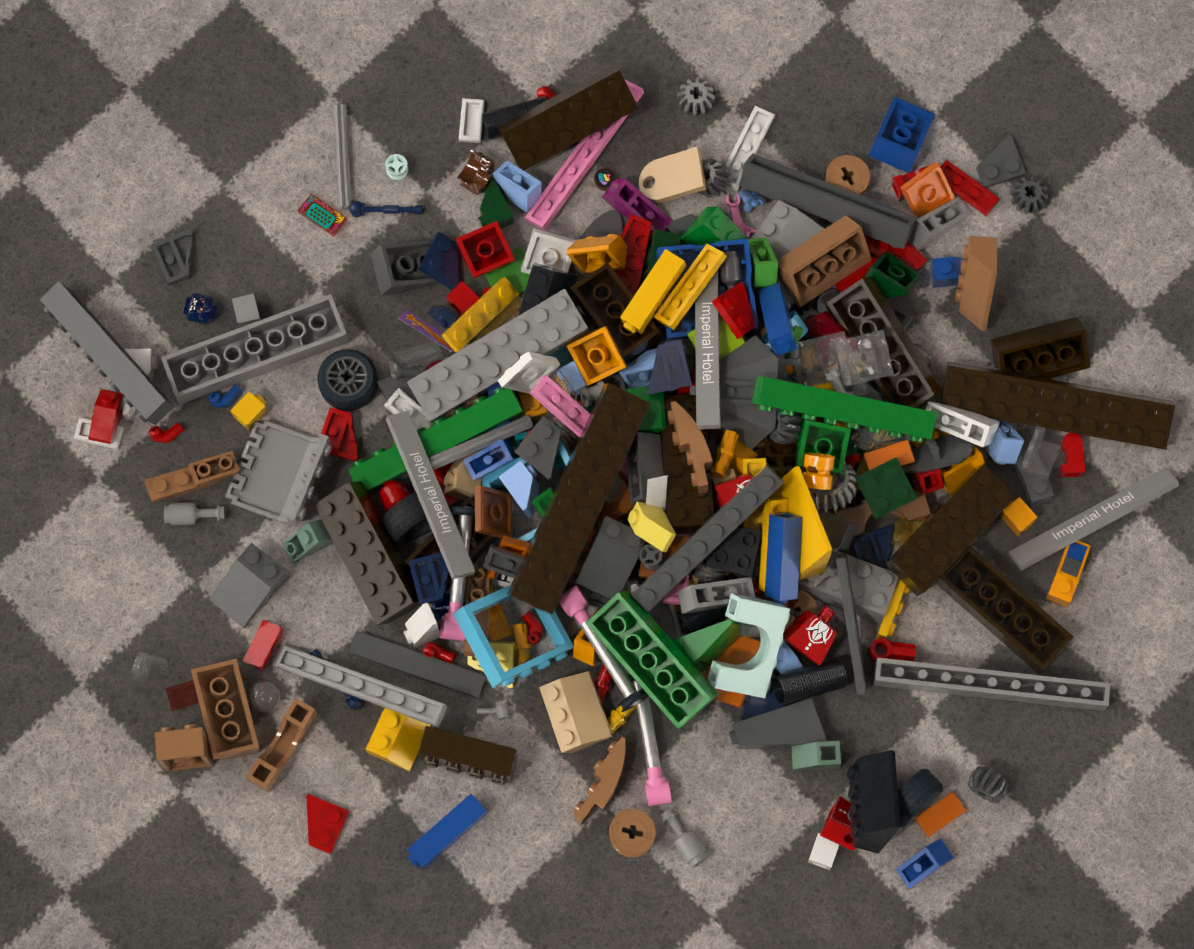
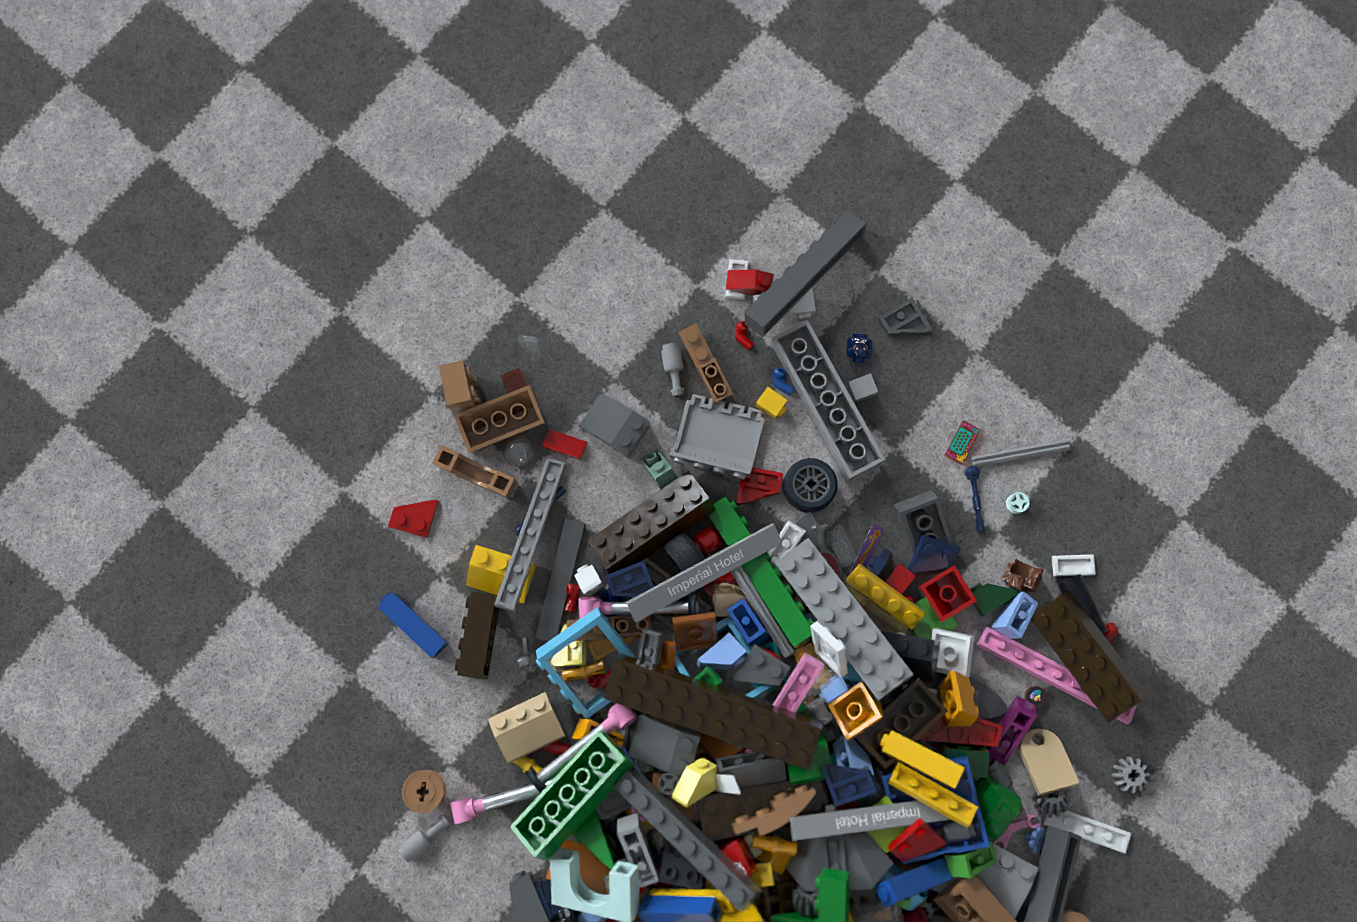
camera: 85 degrees right, 5 degrees up
(608, 772) = (476, 764): medium nougat slope -> none

